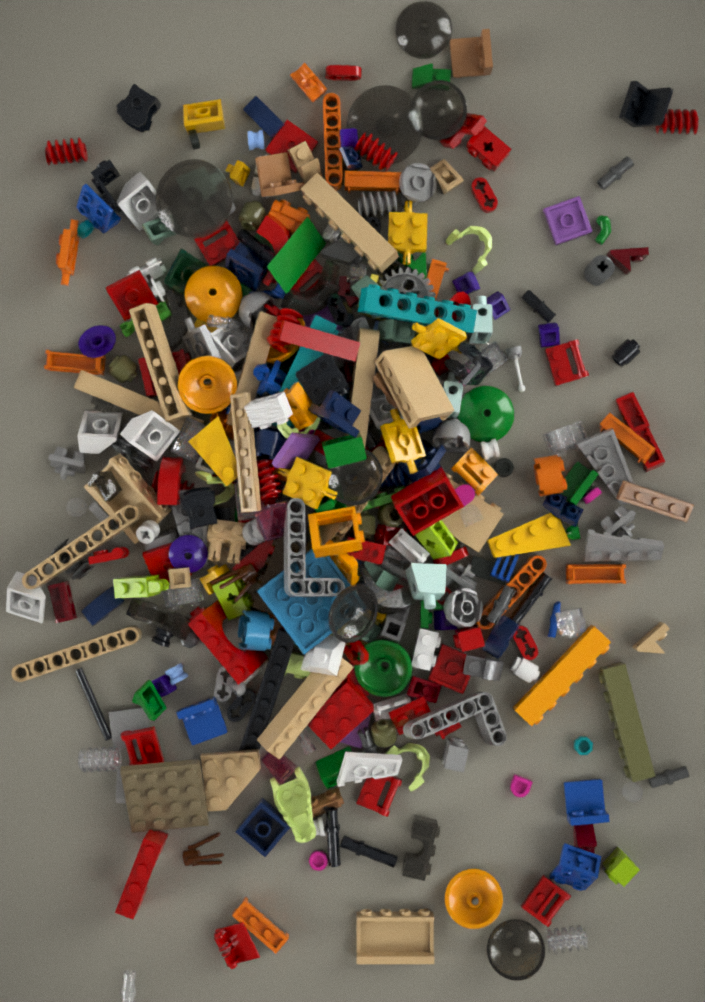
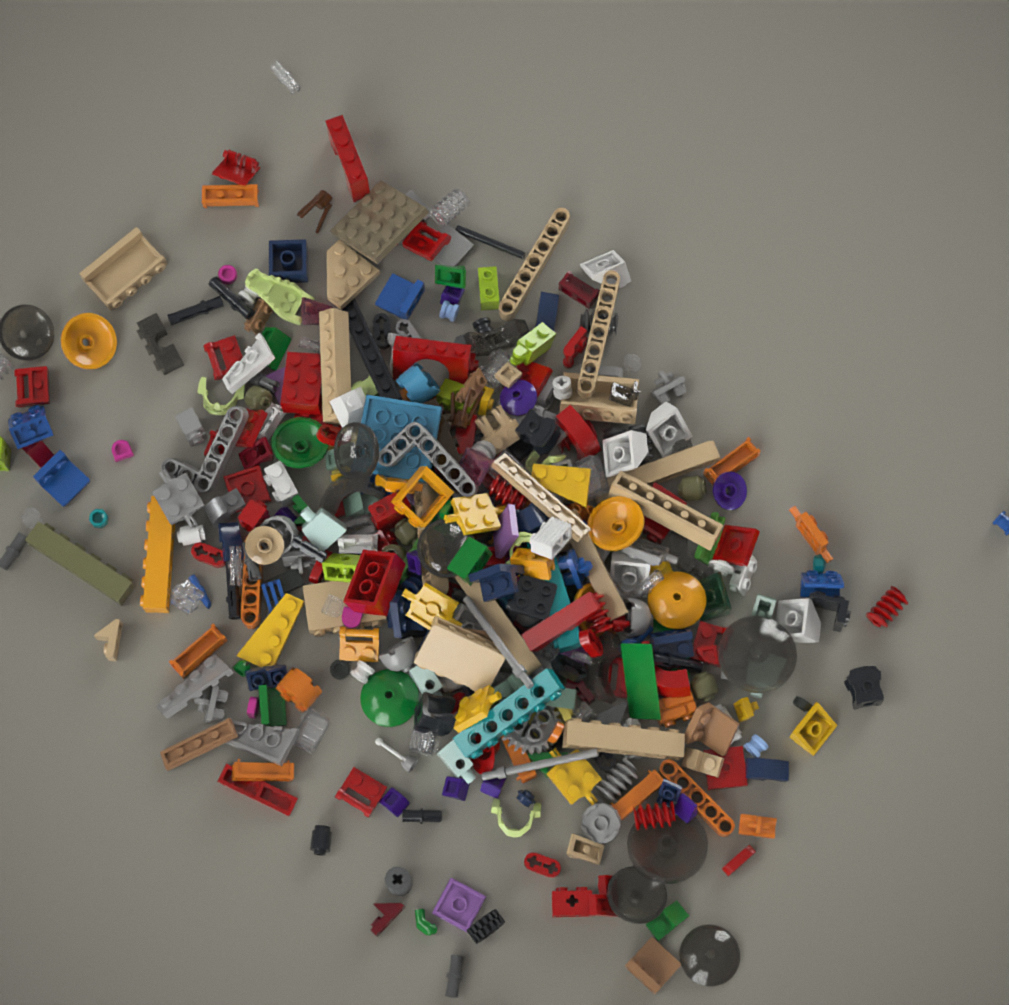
camera: 145 degrees right, 15 degrees down
(129, 665) = (488, 288): none -> lime brick
(211, 594) = (476, 382): none -> medium nougat hinge
(227, 233) = (709, 654): none -> red tile
(309, 309) = (590, 643): none -> red beam
(323, 309) = (581, 657): none -> clear tile
(383, 493) = (413, 562): none -> dark purple slope
(384, 329) = (518, 669): none -> light grey bar
(392, 271) = (556, 732): none -> orange tile
(394, 626) = (319, 478): flat silver brick -> none
(451, 574) = (309, 549): none -> axle
(453, 251) = (526, 797): none -> dark blue plate
(455, 281) = (503, 772): none -> light grey bar
(481, 596) = (271, 538): none -> tan dish
(514, 704) = (178, 499): none -> light grey plate
(515, 612) = (235, 566): none -> clear pin
(564, 184) = (486, 926): none -> black tyre

